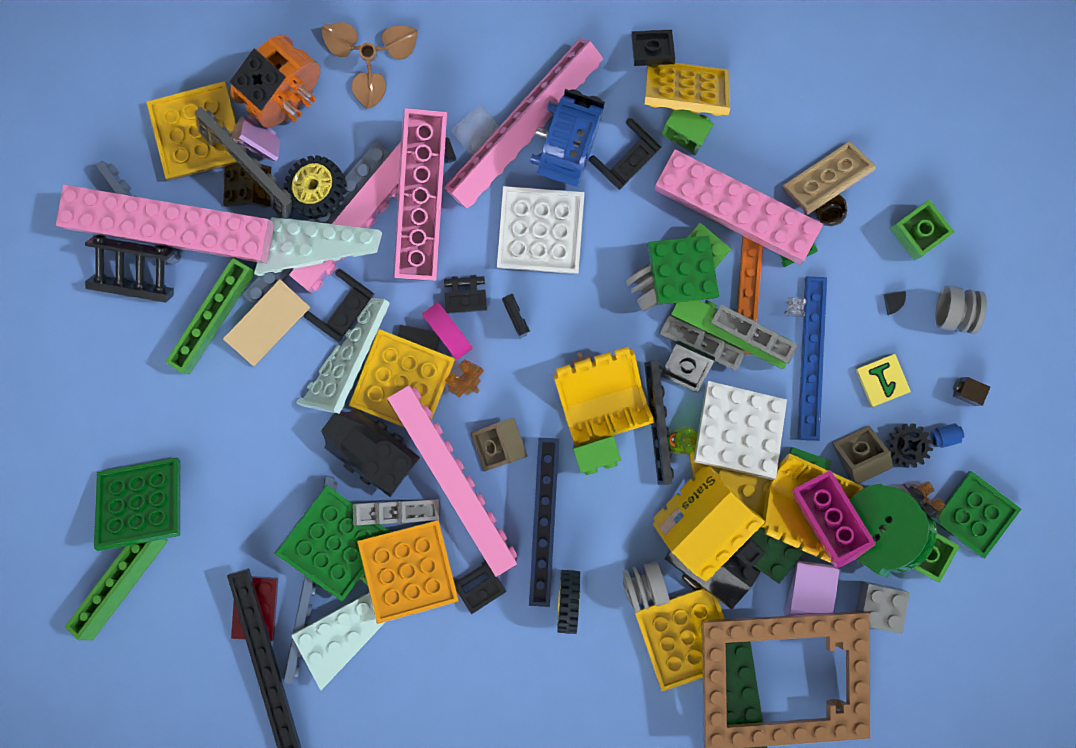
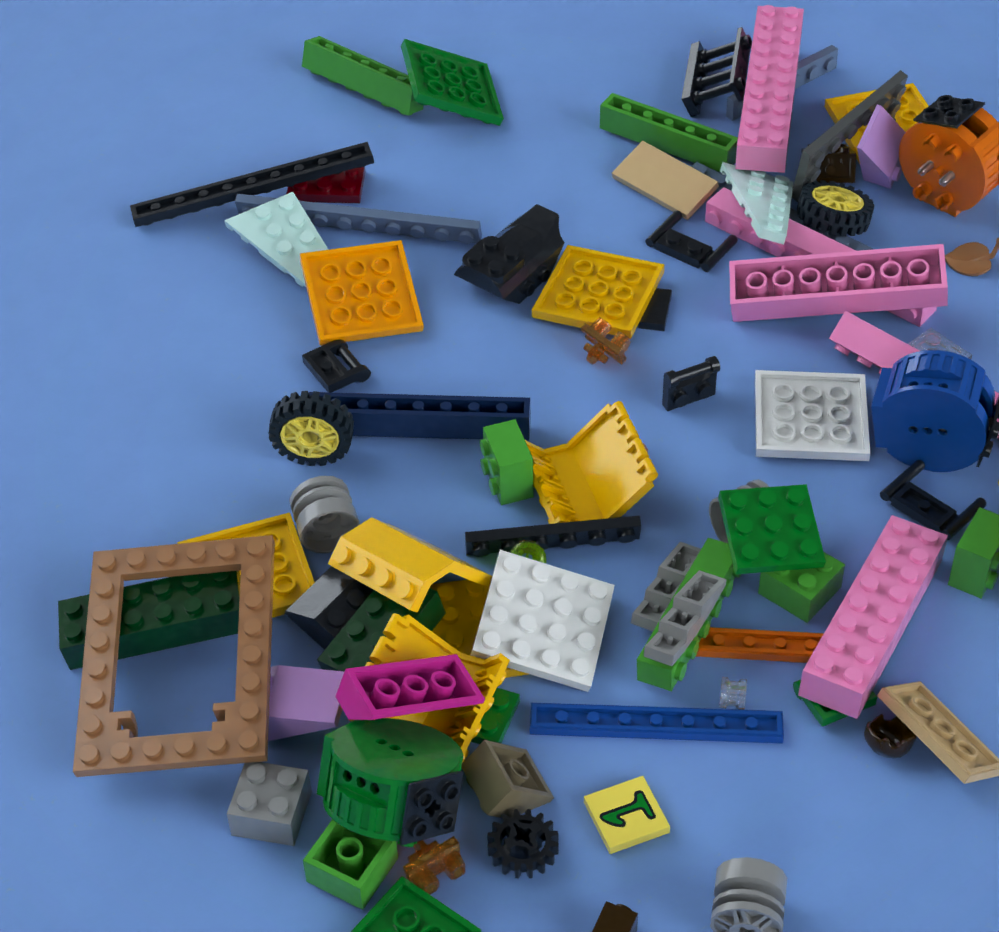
camera: 85 degrees right, 40 degrees down
(326, 543) = (405, 211): green plate -> none
(345, 361) = (620, 238): light aqua wing -> none
(395, 512) = (435, 284): light grey slope -> none
(447, 331) = (674, 316): dark pink brick -> none
(449, 150) = (904, 324): black tile -> none
(453, 480) = (474, 329): bright pink brick -> none
(465, 301) = (707, 342): black plate -> none
(499, 444) = (523, 378): dark tan slope -> none
(687, 366) = (635, 560): plate -> none
(750, 553) = (365, 607): black tile -> none
(894, 301) = (755, 830): black tile -> none
(922, 230) = (876, 853): bright green brick -> none
(947, 435) = (539, 897): blue brick -> none

